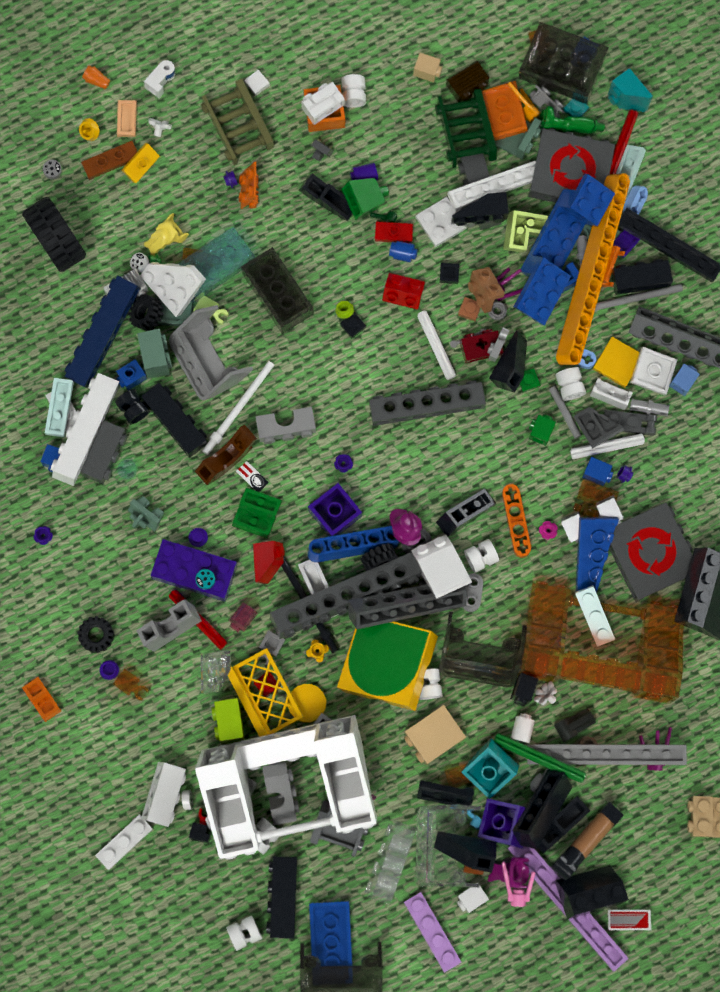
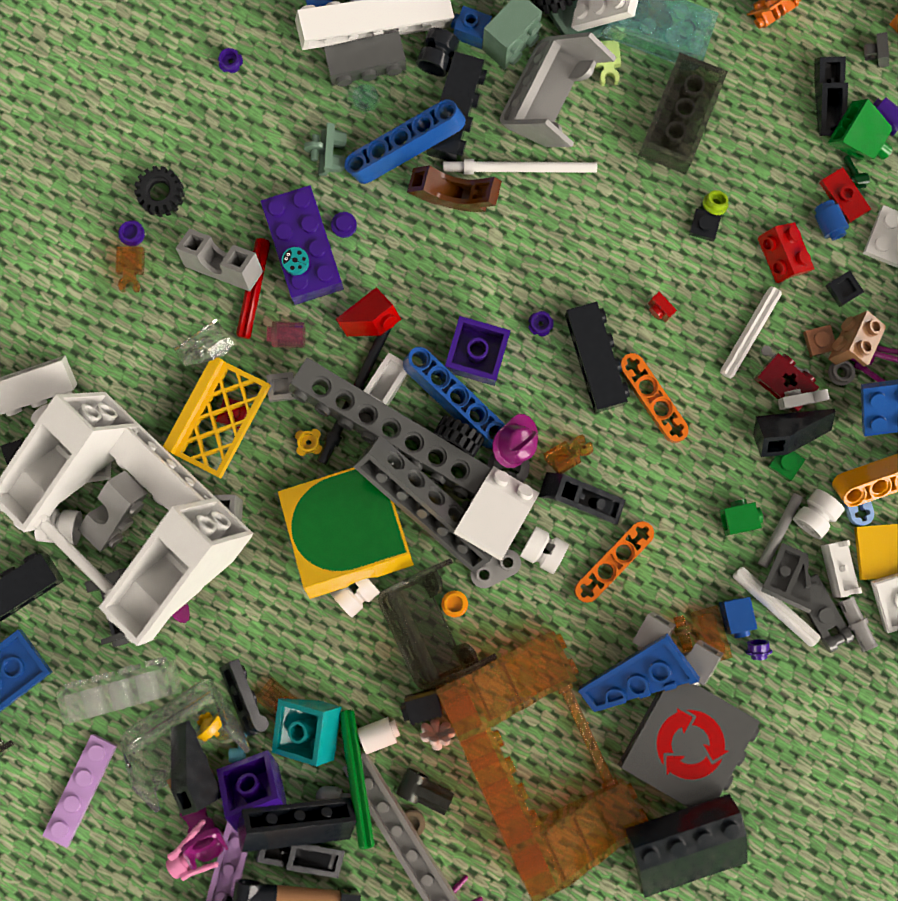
camera: 55 degrees right, 5 degrees up
(41, 699) = (51, 185): orange slope -> none
(171, 472) = (368, 163): none -> blue beam
(229, 721) = (156, 399): lime brick -> none
(252, 477) = (454, 236): sticker -> none
(256, 513) = (416, 269): green slope -> none
(302, 425) = (550, 247): light grey arch -> none
(310, 702) = (245, 473): yellow tile -> none
(381, 416) = (677, 382): dark grey brick -> none
(385, 386) = (661, 307): none -> red plate
(387, 444) = (596, 357): none -> black brick
(434, 735) = (301, 639): tan panel -> none
(435, 426) = (657, 395): none -> orange beam
(435, 503) = (567, 456): none -> clear orange plate
(448, 824) = (209, 726): none -> yellow hat
(471, 899) = (142, 815): white brick -> none
(476, 631) = (454, 603): none -> light orange plate
(548, 525) = (625, 599): dark pink plate -> none
(595, 615) = (567, 729): light aqua plate -> none

